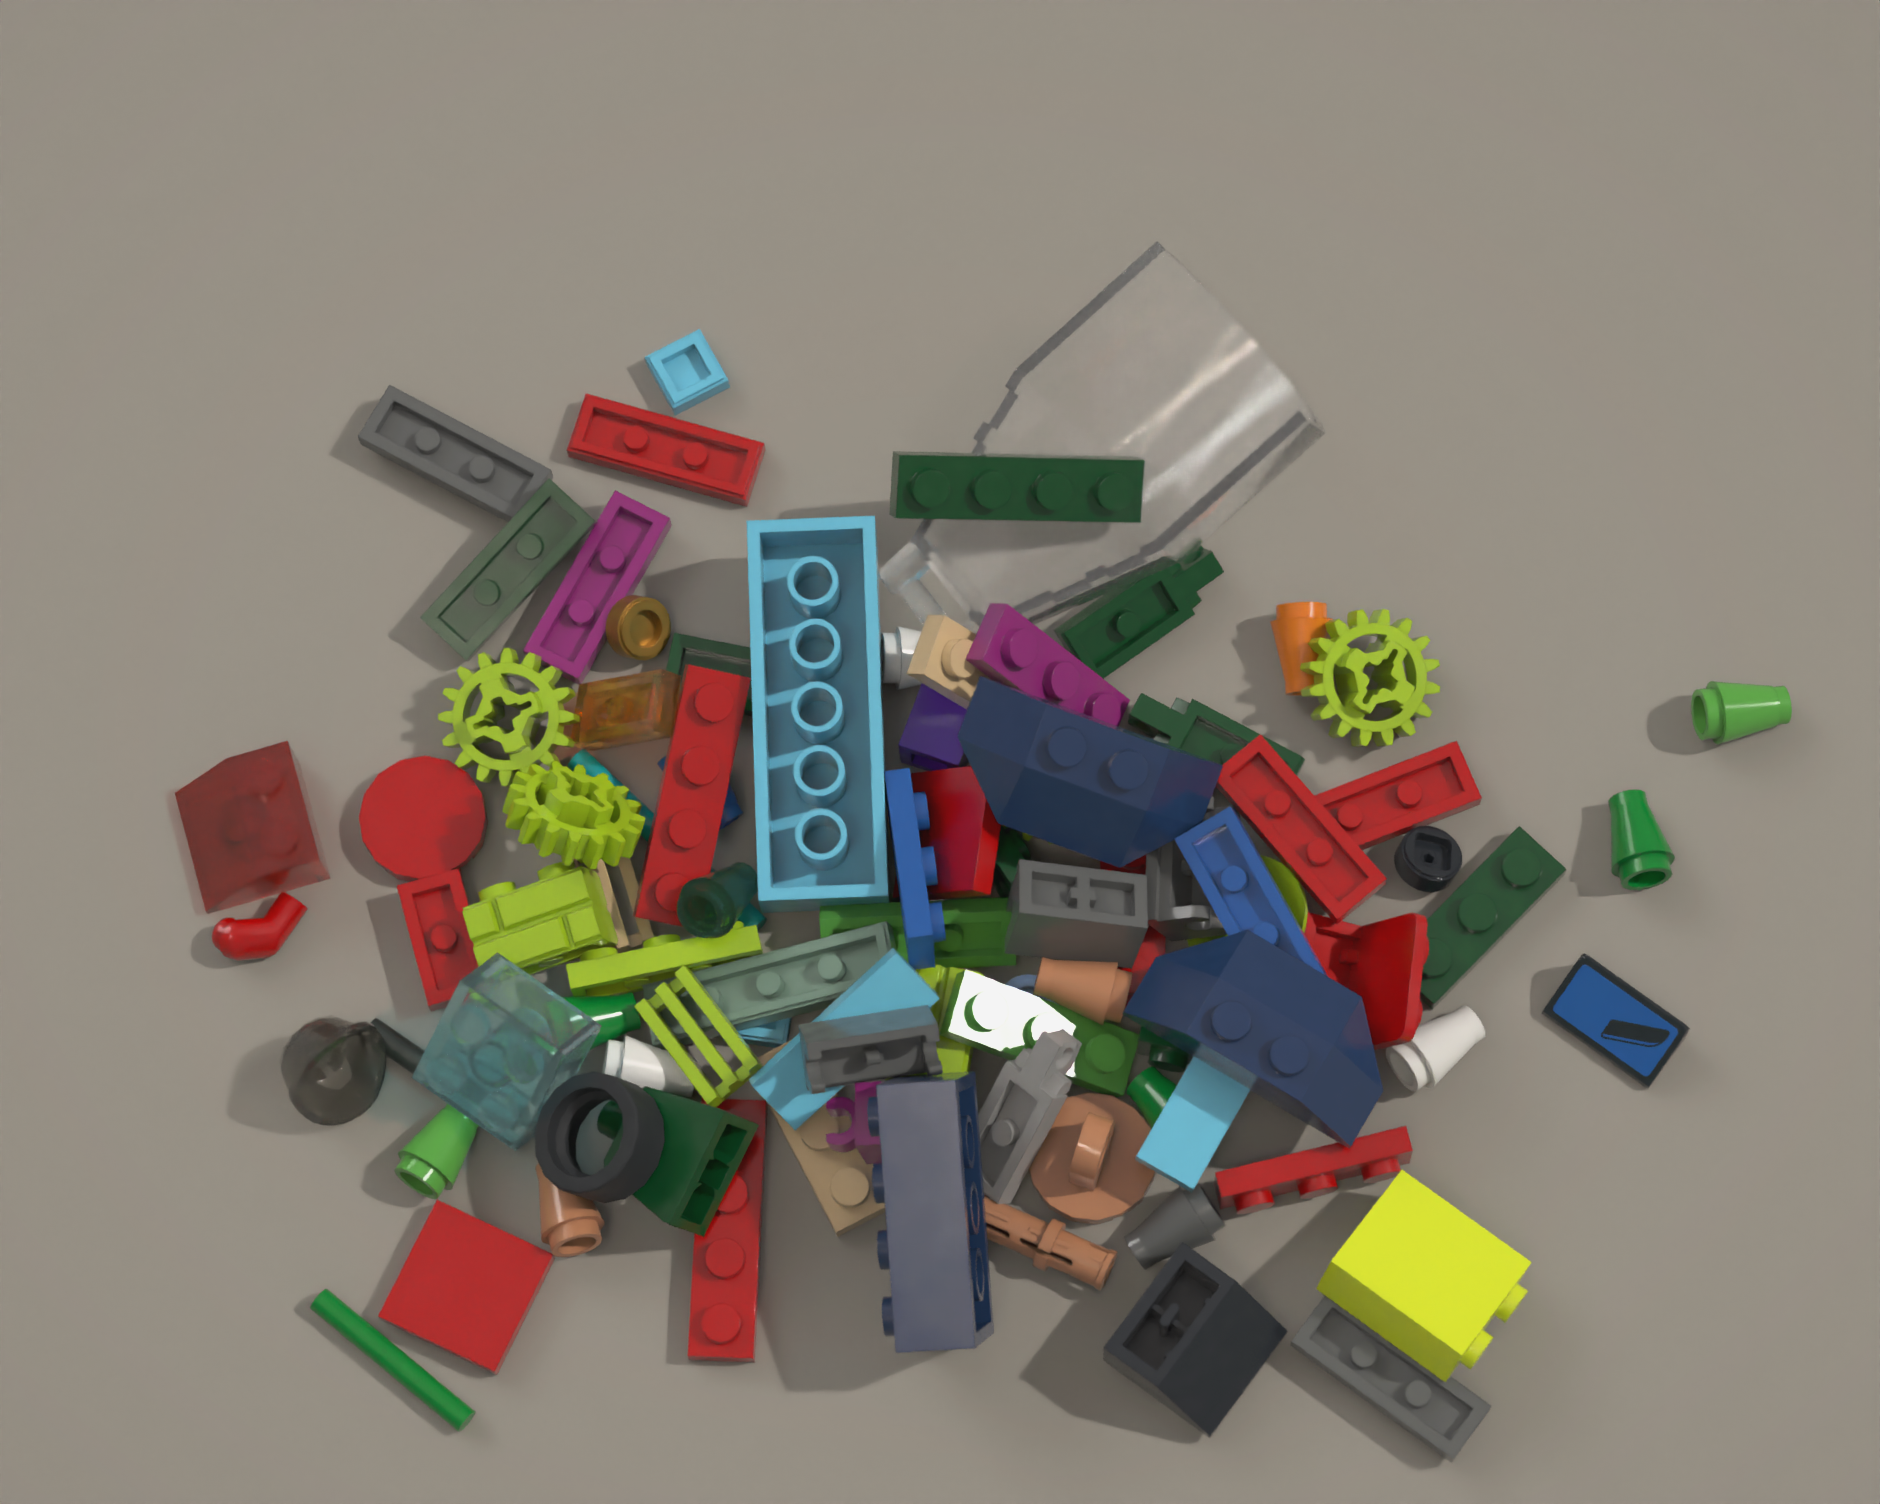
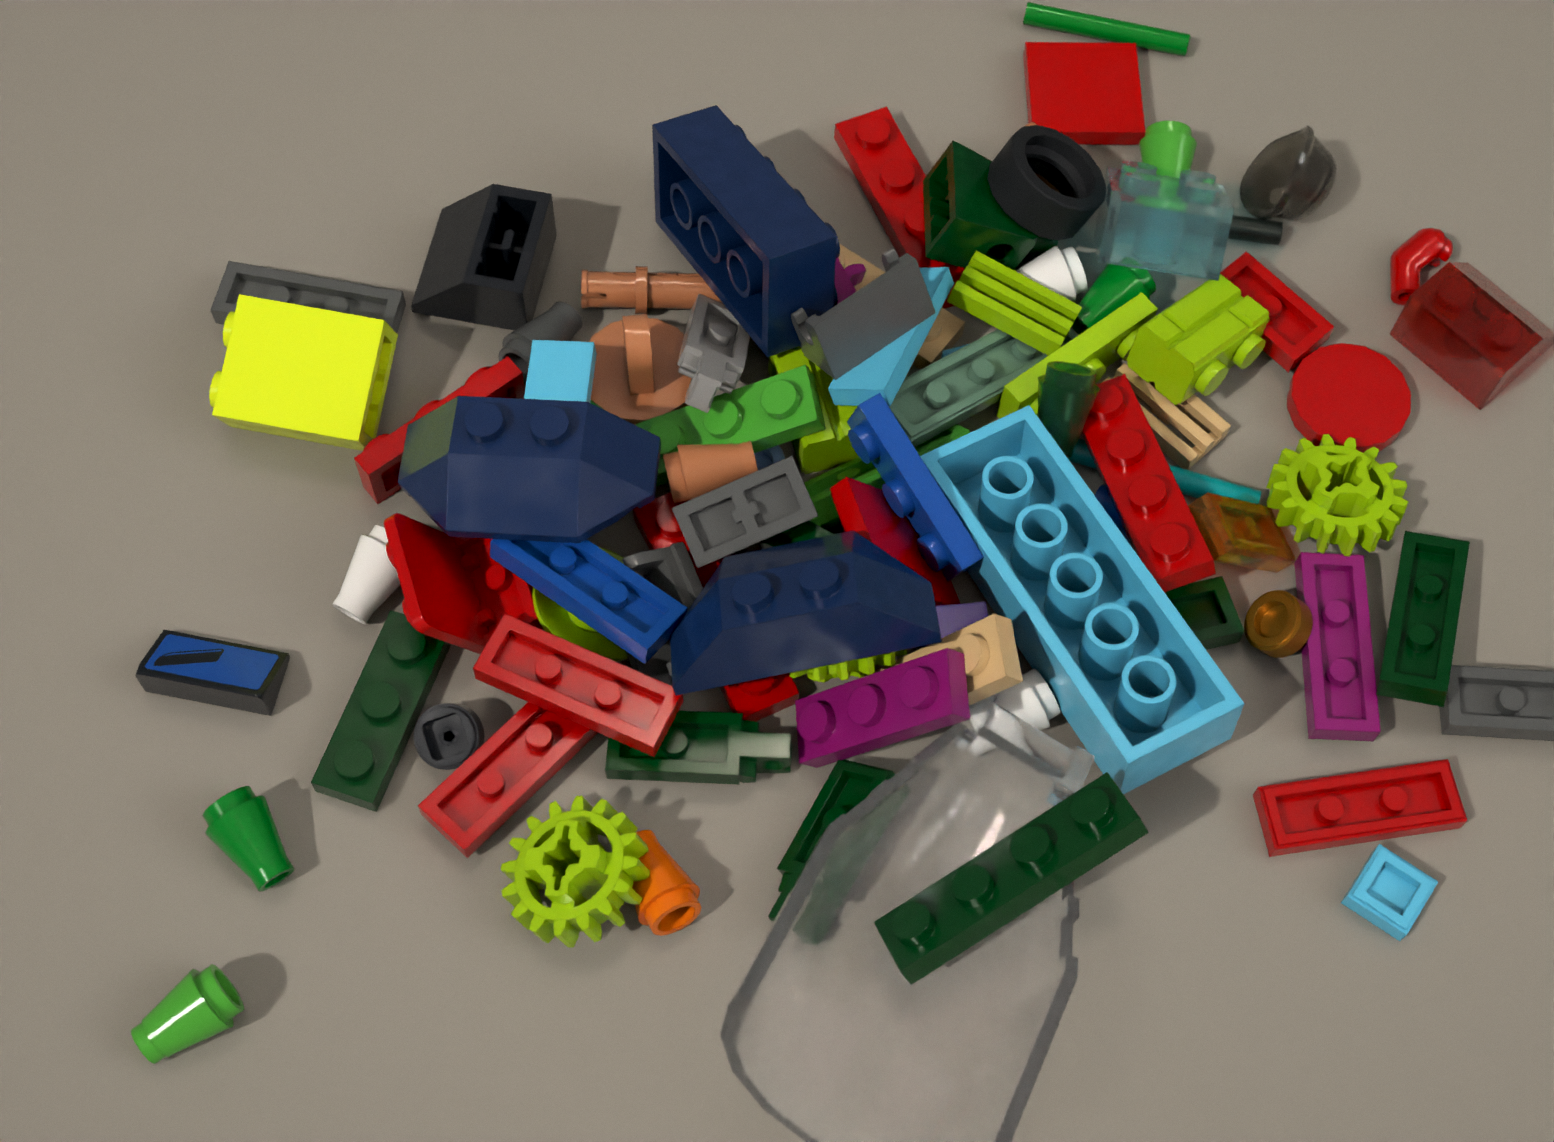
camera: 145 degrees right, 10 degrees down
(573, 815) = (1241, 393): lime gear -> none

